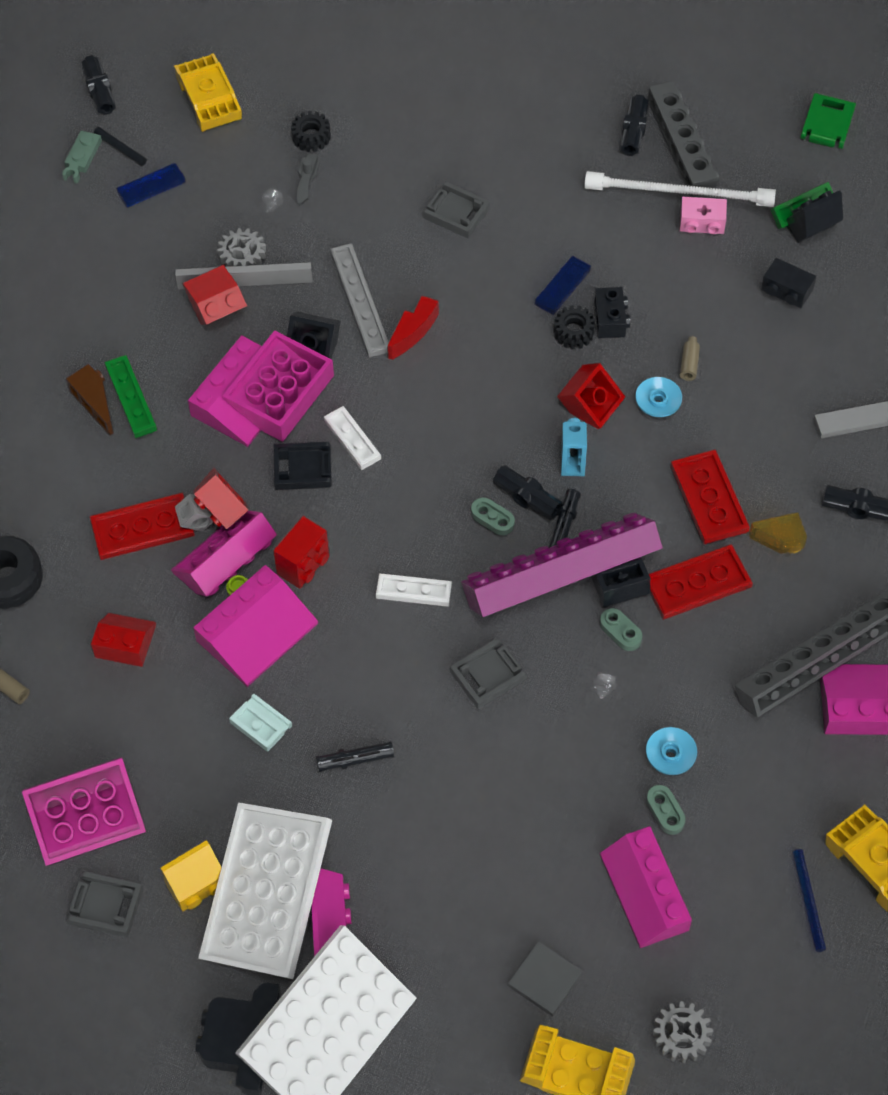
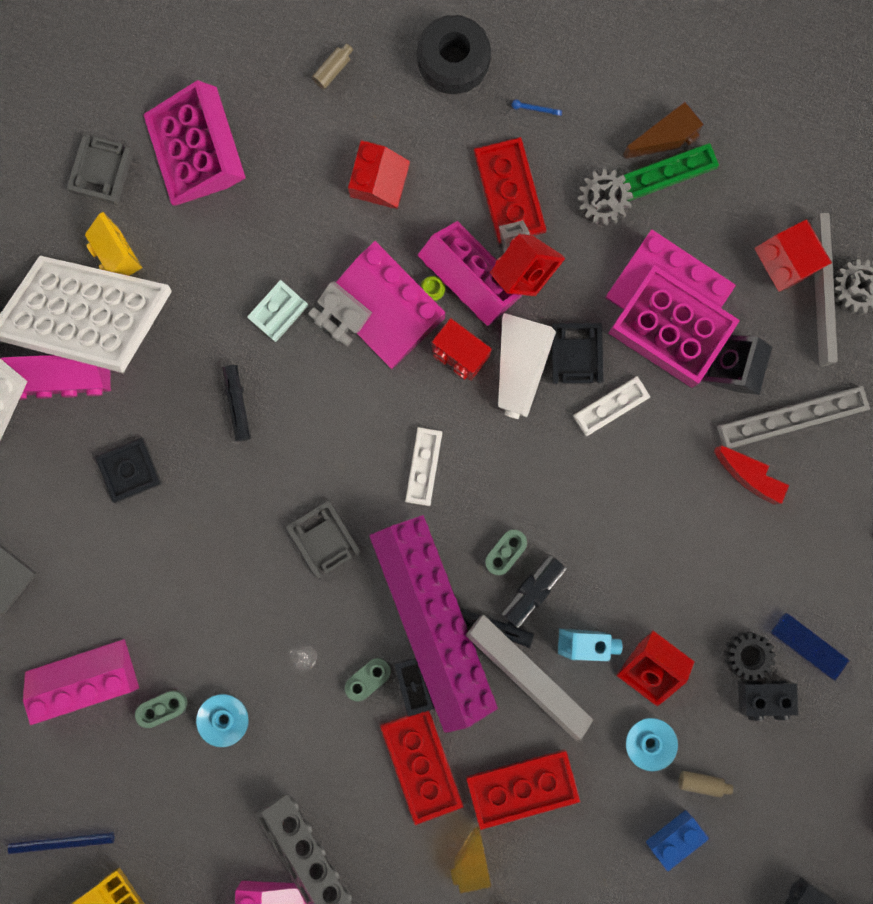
camera: 90 degrees right, 25 degrees up
(55, 522) = (516, 104): none -> blue hinge
(146, 449) = (612, 189): none -> light grey gear
(258, 658) = (344, 308): none -> light grey plate
(321, 505) = (522, 361): none -> white slope
(426, 858) = (128, 470): none -> black tile
(606, 490) = (529, 677): none -> light grey tile
(740, 376) = (677, 840): none -> blue brick

